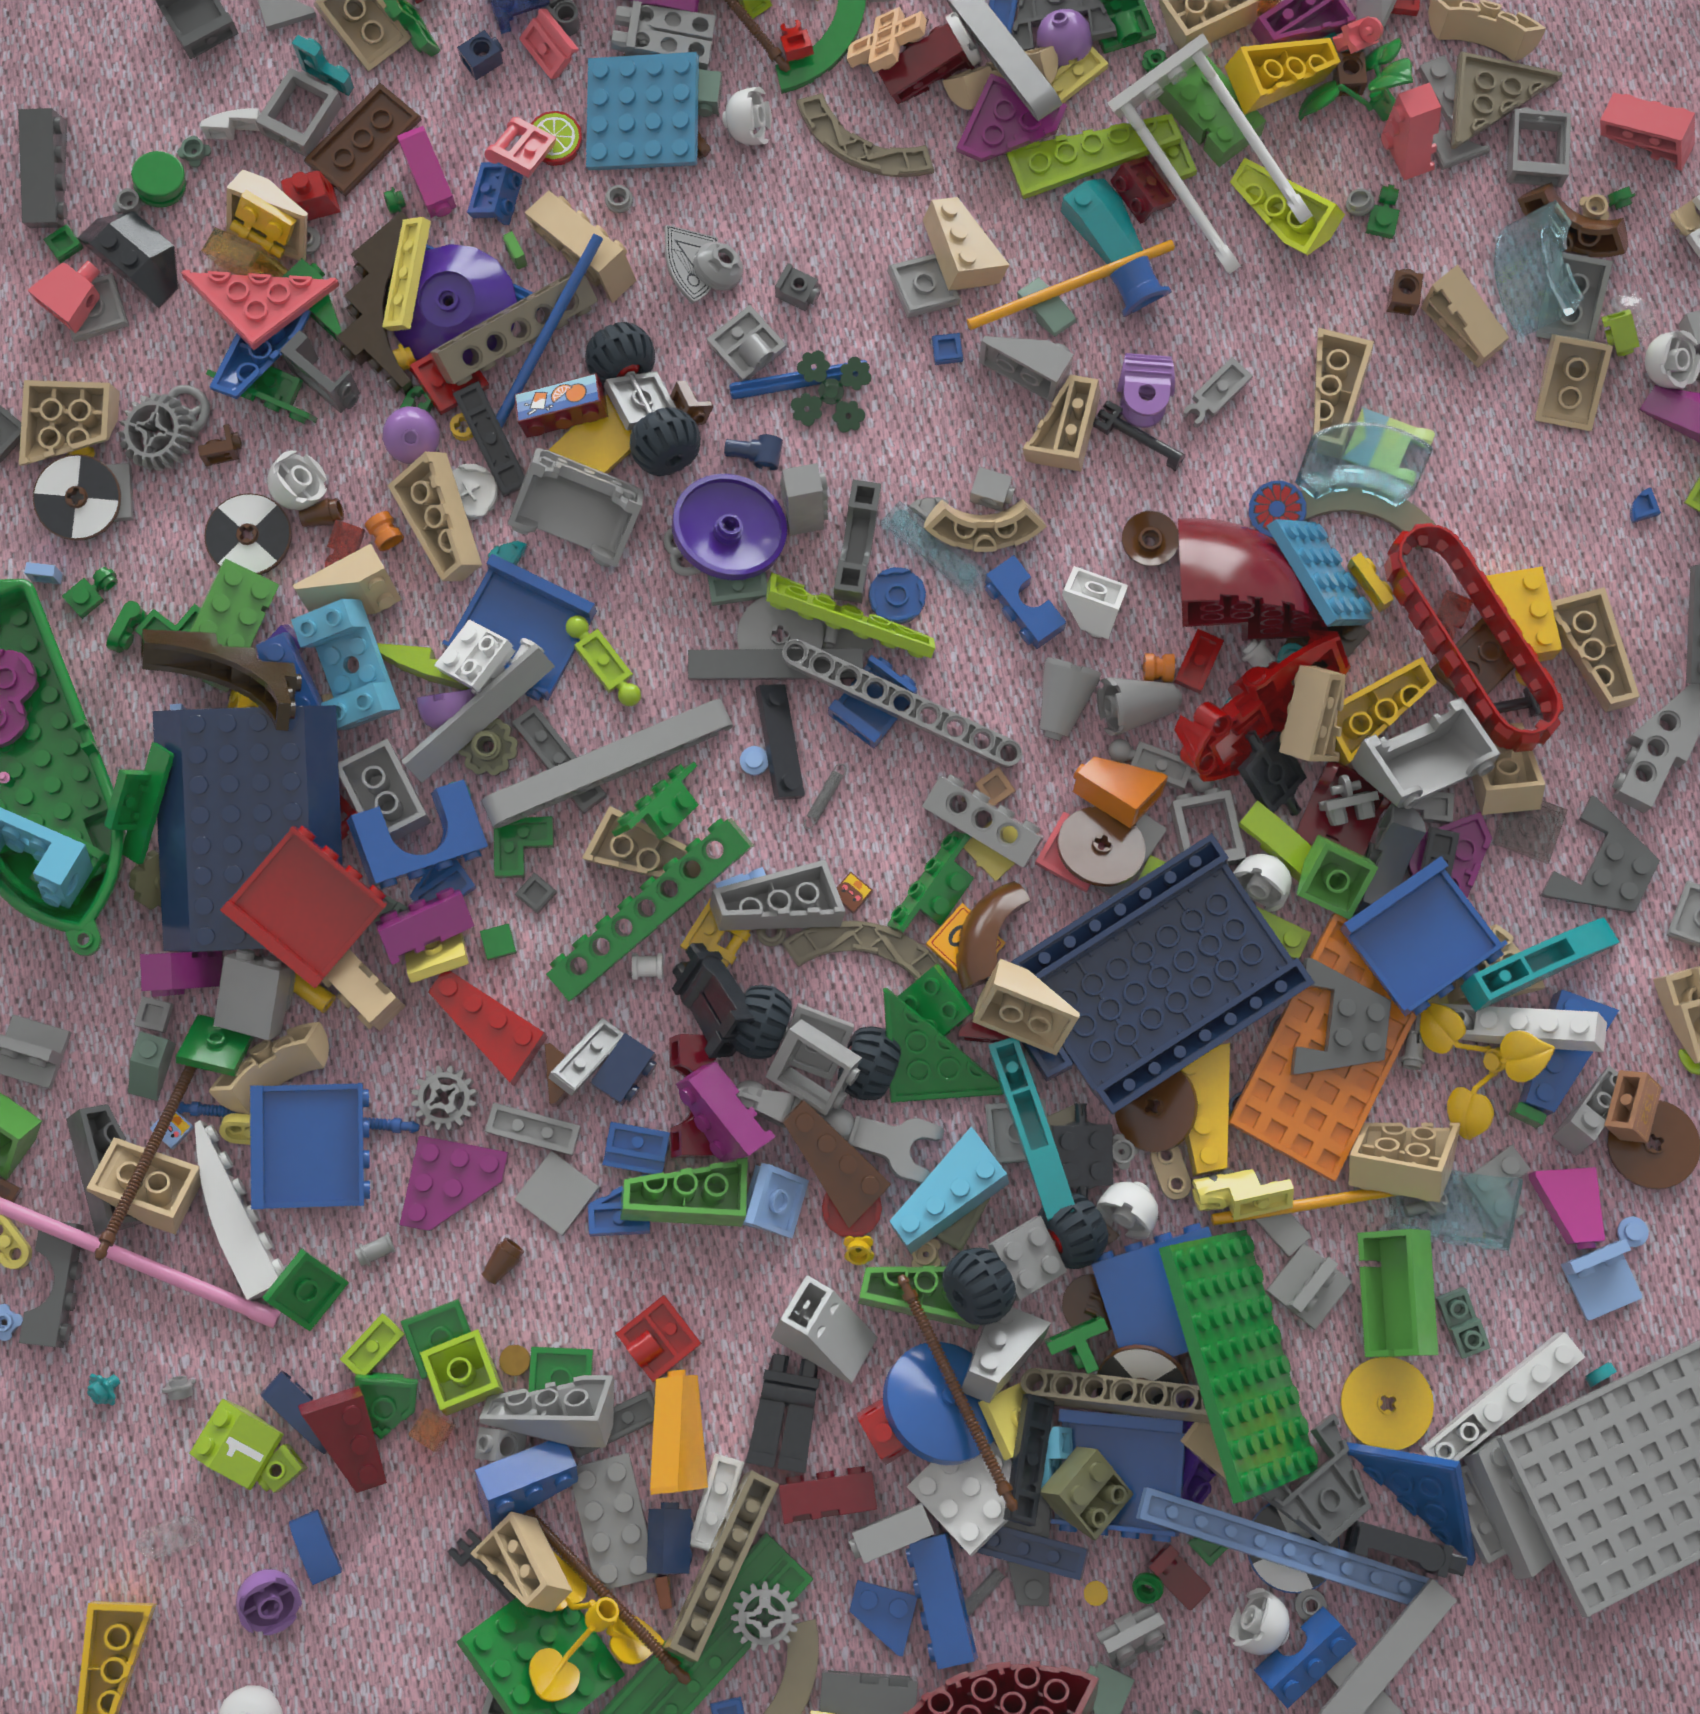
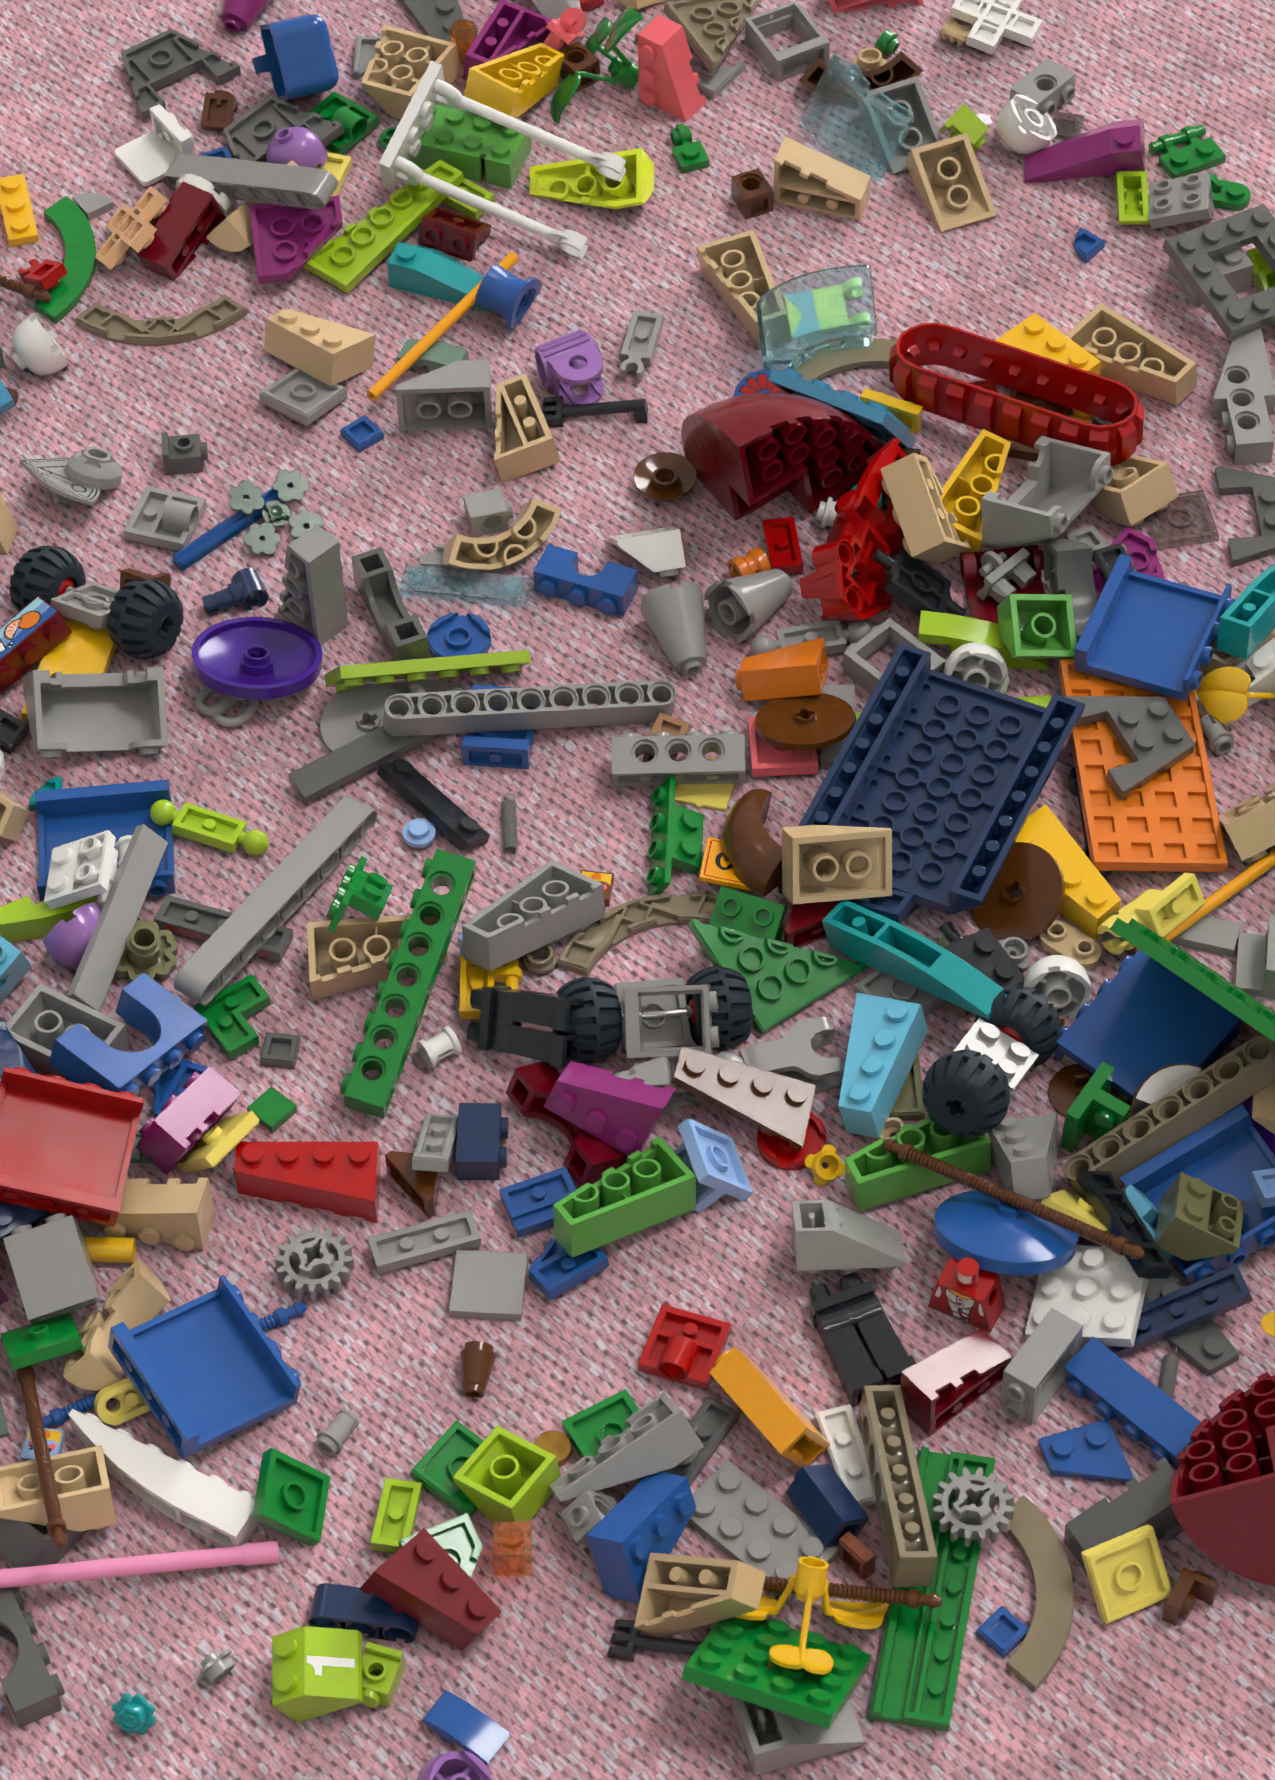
camera: 30 degrees left, 25 degrees down
(448, 1179) = (369, 1334): magenta plate -> none
(736, 591) = (295, 709): sand green plate -> none
(1360, 202) = (660, 150): light grey plate -> none

